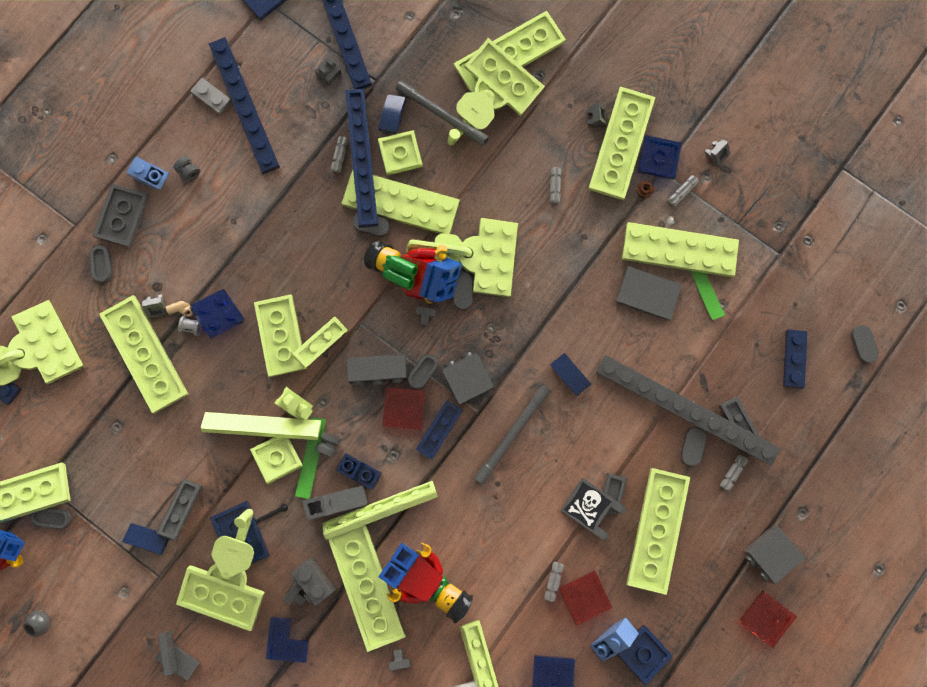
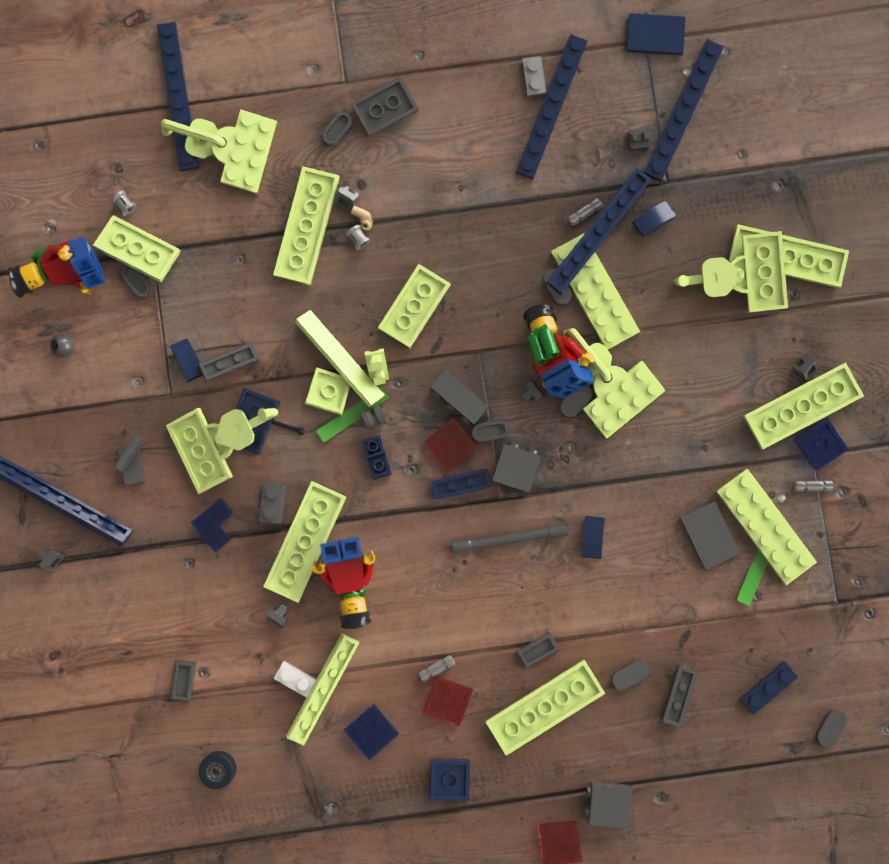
camera: 50 degrees right, 5 degrees up
(147, 174) = (432, 95): medium blue slope -> none
(186, 168) = (464, 116): dark grey wheel -> none
(217, 313) = (385, 246): clear blue plate -> none
(294, 594) = (251, 498): dark grey tile -> none
(319, 342) = (437, 339): yellowish green plate -> none
(335, 502) = (339, 463): dark grey slope -> none
(379, 510) = (365, 498): yellowish green tile -> none
(400, 152) = (631, 254): yellowish green plate -> none
(473, 133) = (698, 292): dark grey piece -> none
(555, 185) = (721, 389): light grey axle -> none
(589, 507) = (513, 642): flag -> none
(615, 639) = (439, 749): medium blue slope -> none
(645, 193) = (781, 457): reddish brown plate -> none
(688, 410) = (652, 646): dark grey plate -> none
(719, 153) = (870, 484): dark grey tile -> none
(734, 472) = (640, 721): light grey axle -> none

